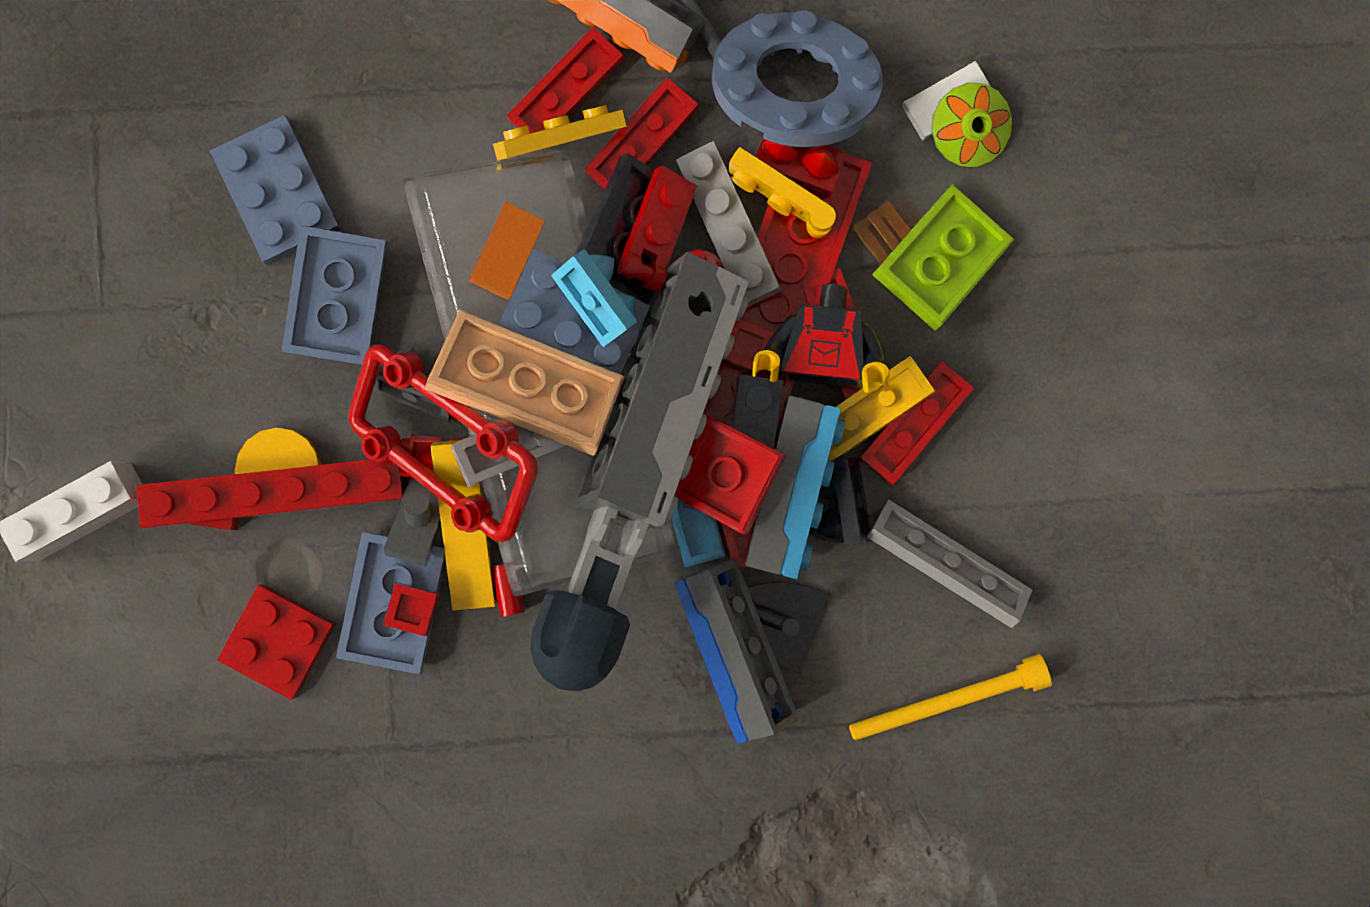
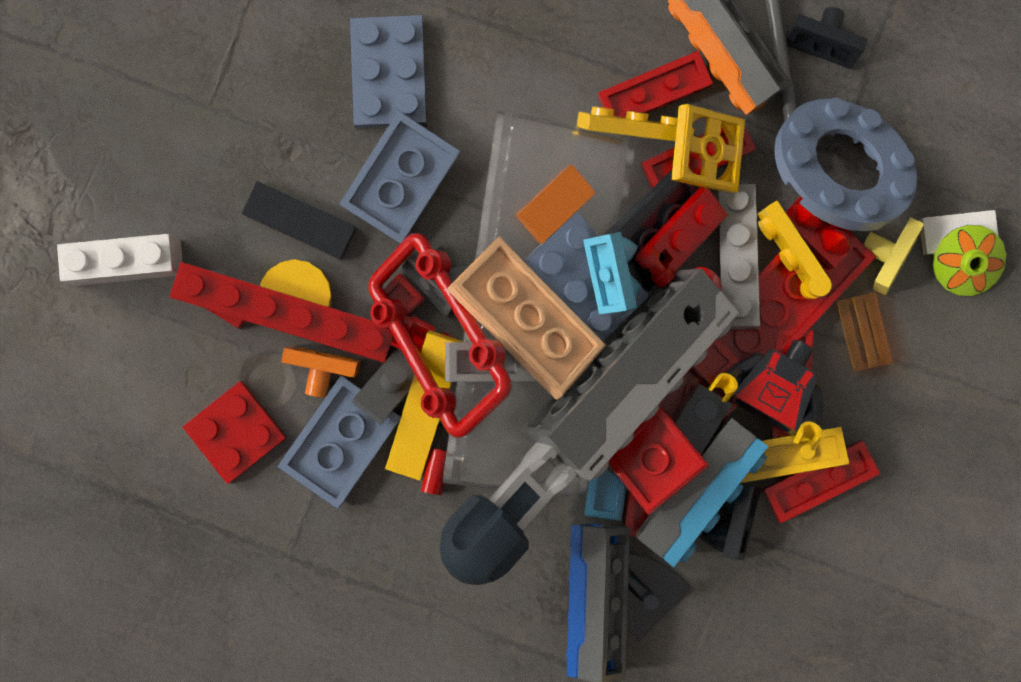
camera: 25 degrees right, 0 degrees up
(248, 388) = (299, 220): none -> black tile
(337, 533) = (321, 367): none -> orange tile
(394, 415) = (403, 291): none -> red tile
(411, 609) = (354, 455): red plate -> none
(617, 127) = (686, 143): none -> yellow piece
(889, 152) = (892, 253): none -> light yellow tile
(943, 257) = (900, 357): lime tile -> none
(950, 563) = (799, 606): light grey plate -> none

